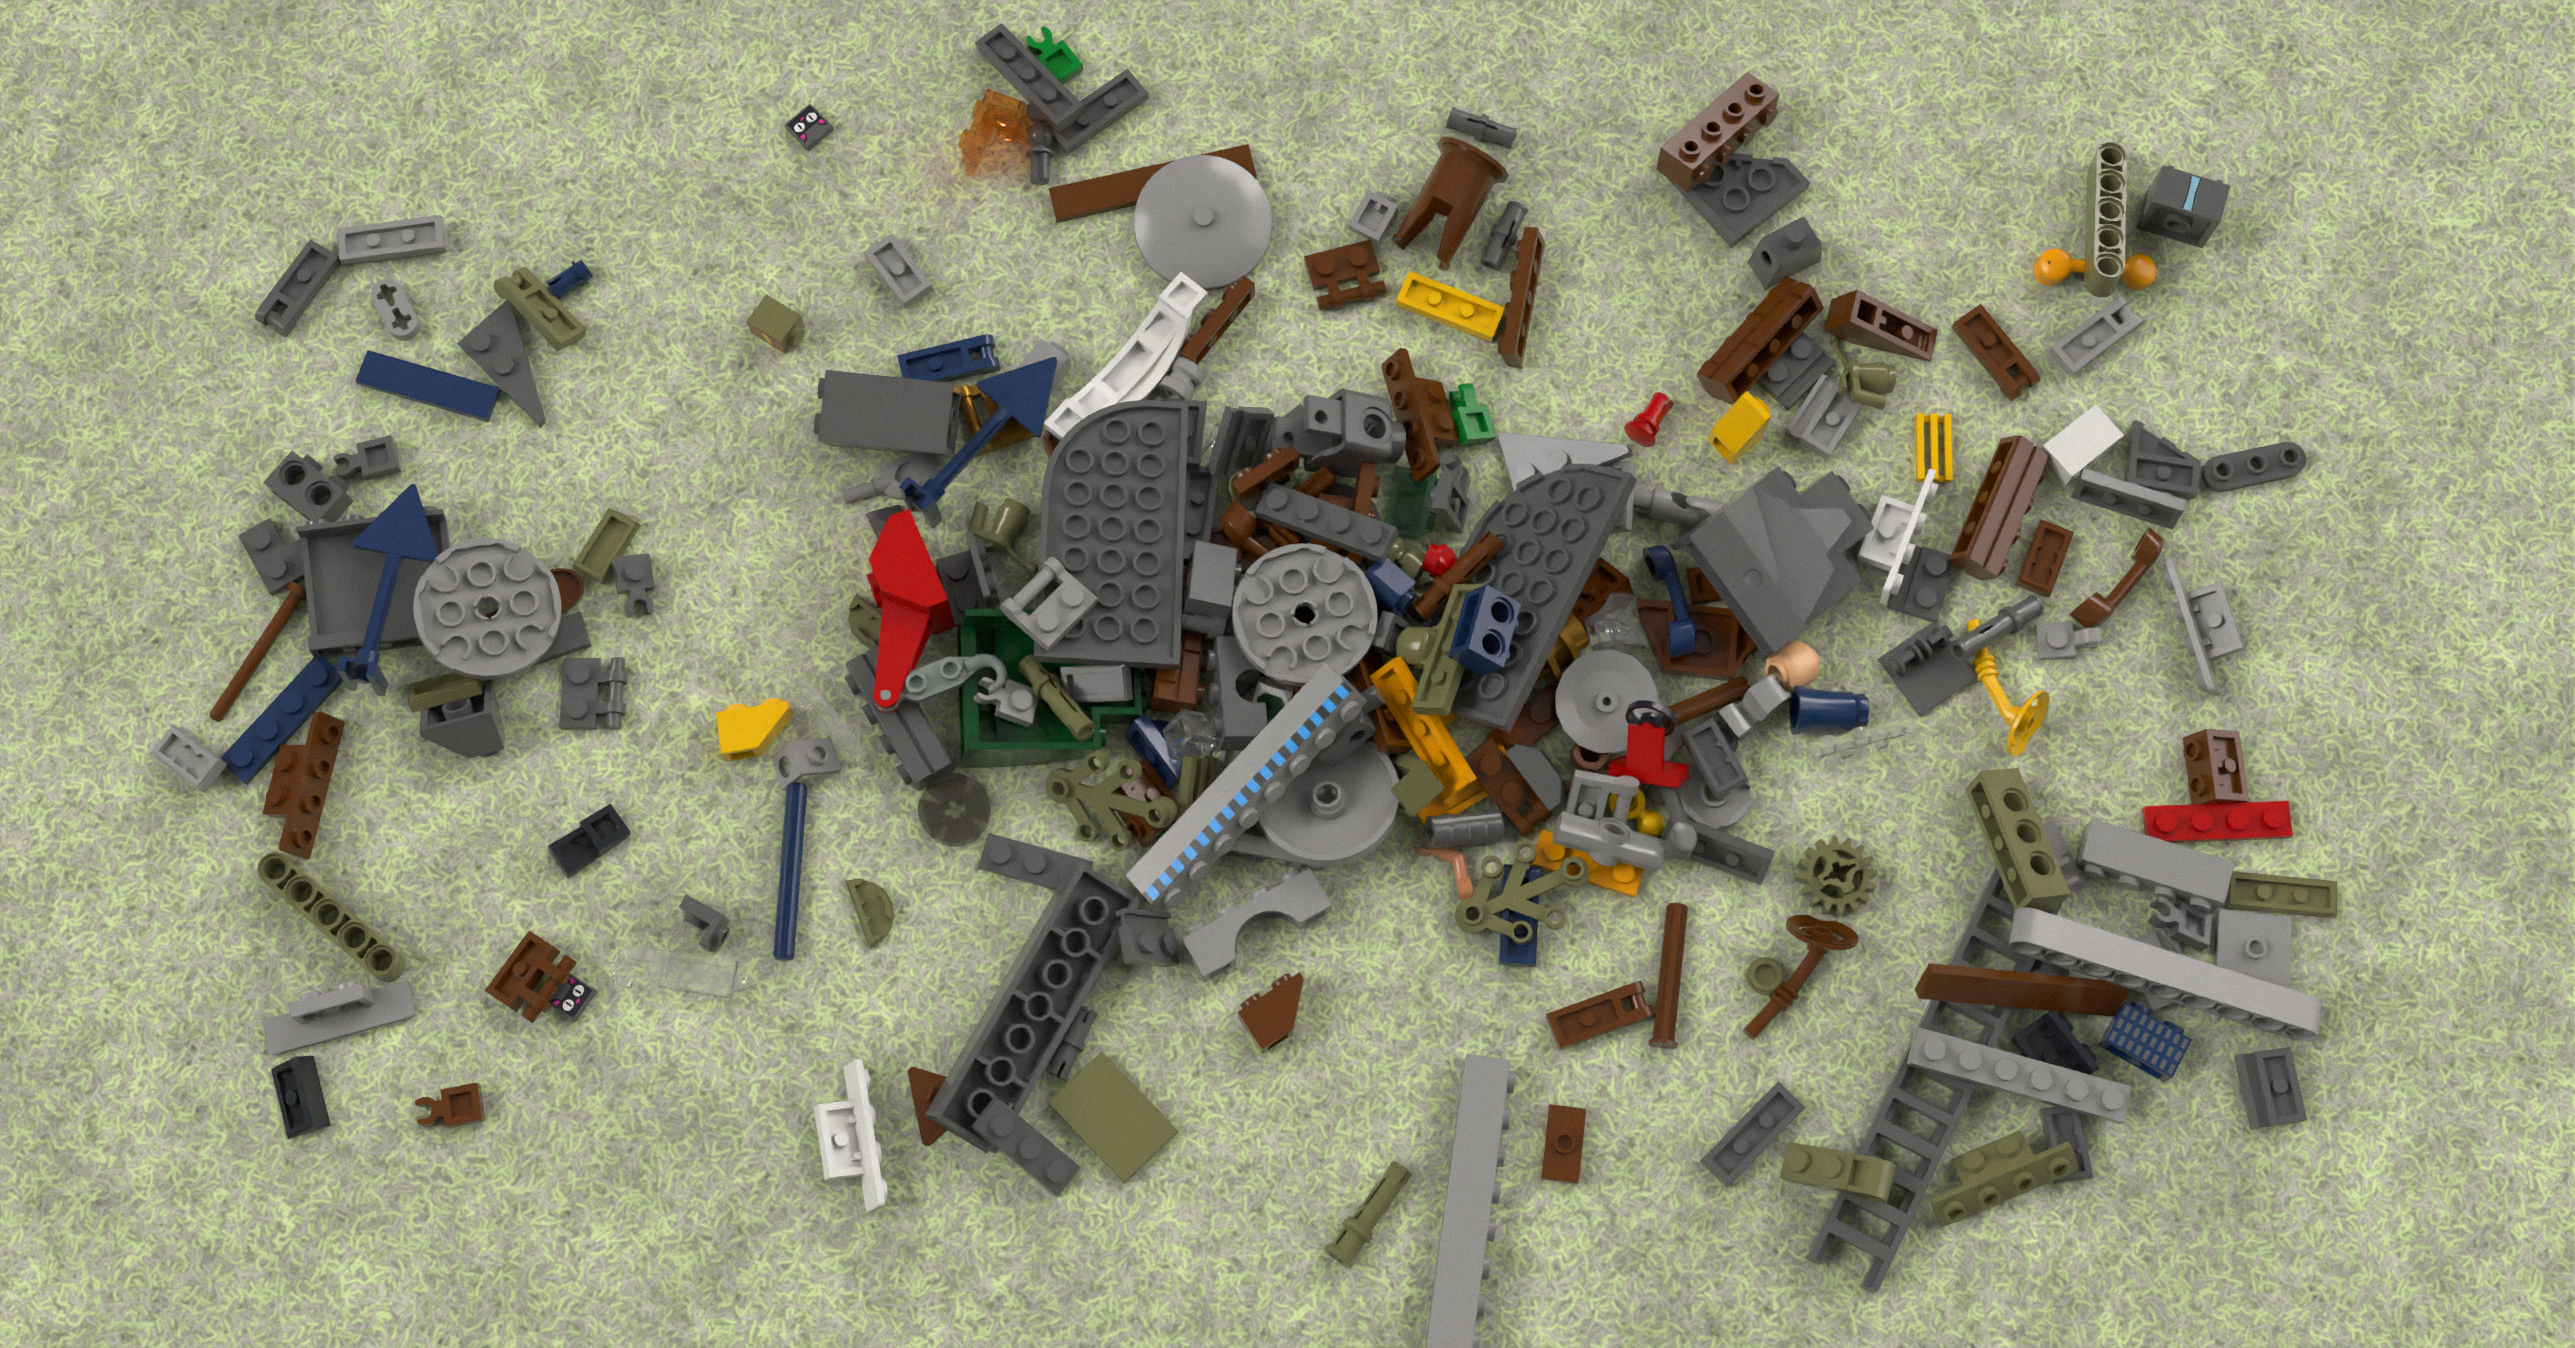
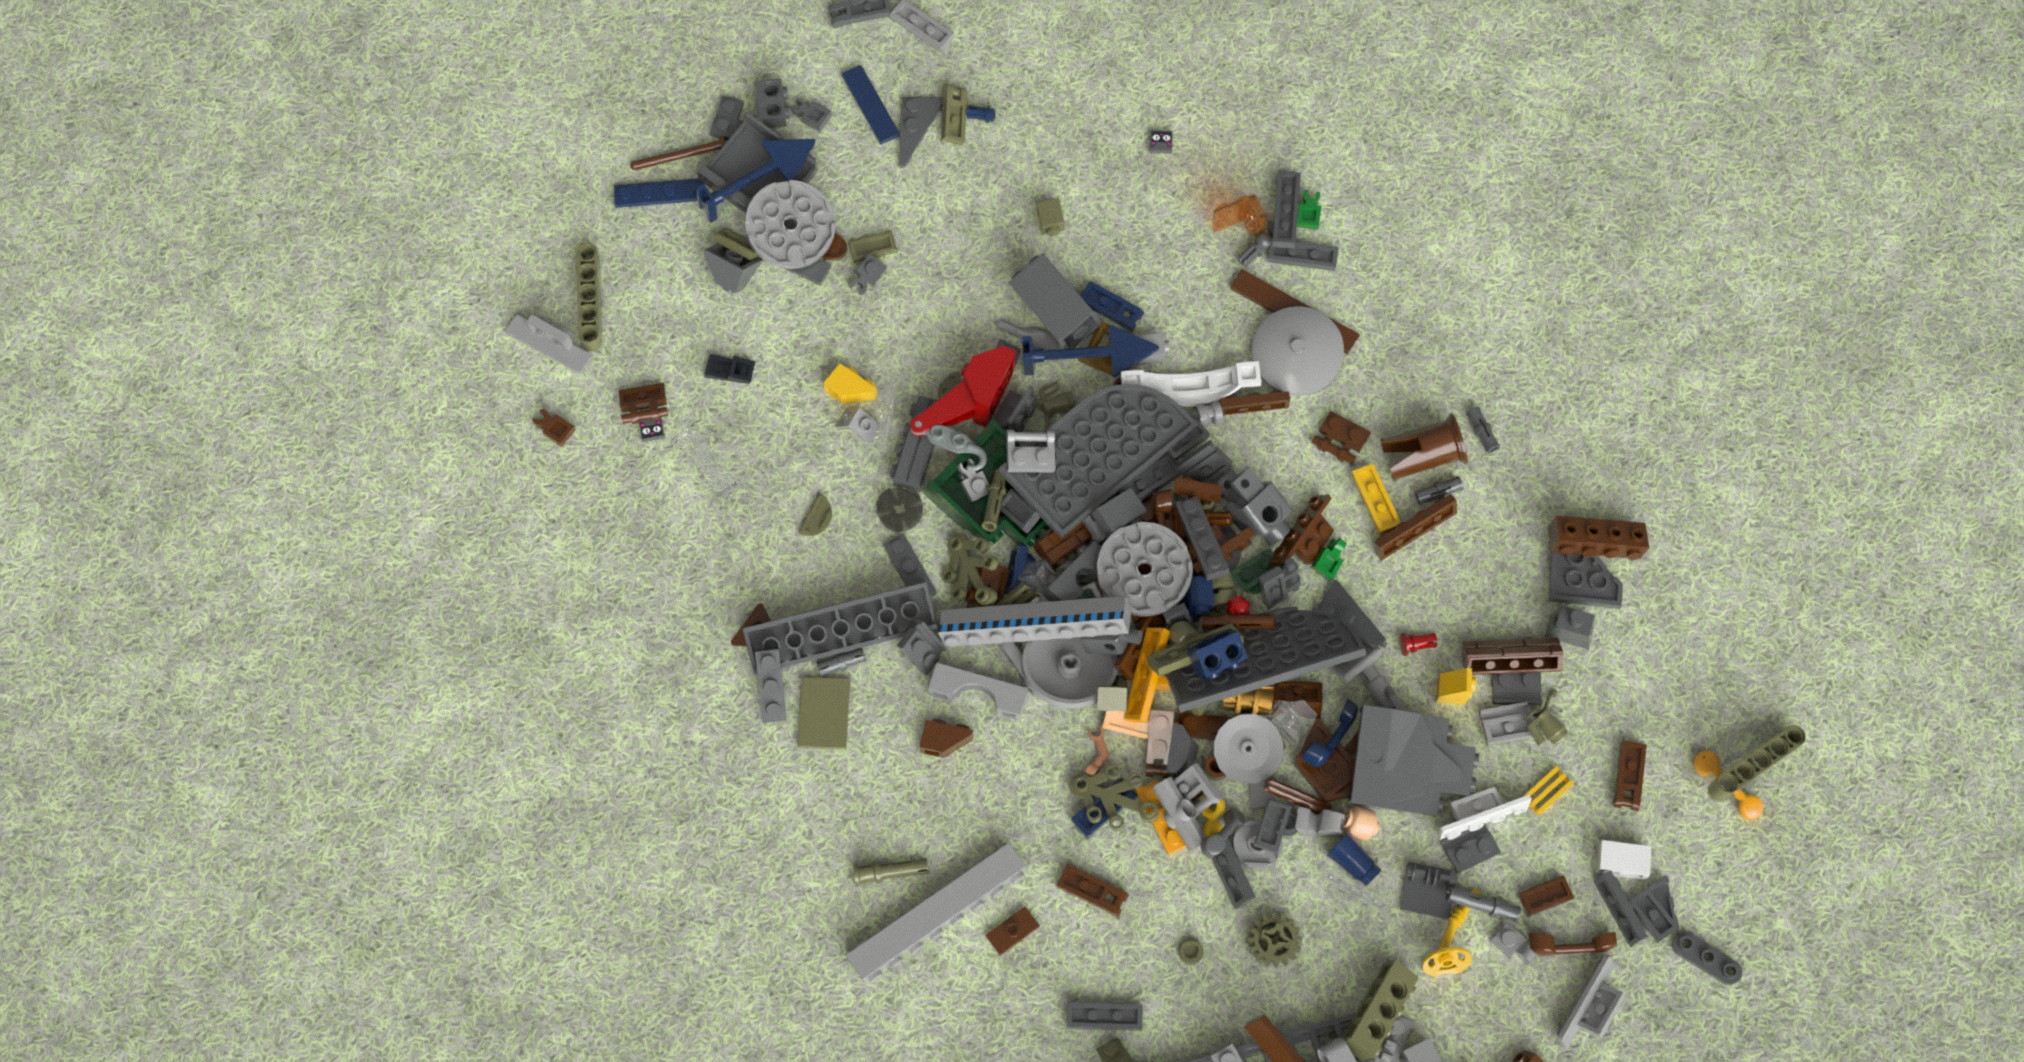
camera: 50 degrees right, 5 degrees down
(189, 758) = (603, 173): light grey plate -> none
(300, 1096) = (499, 362): black slope -> none
(302, 783) = (637, 229): reddish brown bracket -> none
(402, 306) = (887, 56): light grey beam -> none
(581, 693) = (794, 301): dark grey plate -> none
(701, 916) = (742, 454): dark grey bracket -> none
(790, 871) = (800, 466): dark blue axle -> none
(849, 1138) = (700, 605): white bracket -> none
(898, 270) = (1132, 243): light grey plate -> none
(1374, 216) = (1383, 422): light grey bracket -> none
(1464, 829) = (1119, 742): dark grey axle -> none
(1646, 748) = (1241, 787): red piece -> none
(1670, 977) = (1144, 906): reddish brown axle -> none
(1818, 944) = (1232, 960): reddish brown dish -> none
(1879, 326) = (1582, 707): reddish brown slope -> none
(1999, 508) = (1547, 849): reddish brown brick -> none
(2095, 336) = (1692, 816): light grey plate -> none
(2183, 206) = (1805, 795): dark grey container -> none

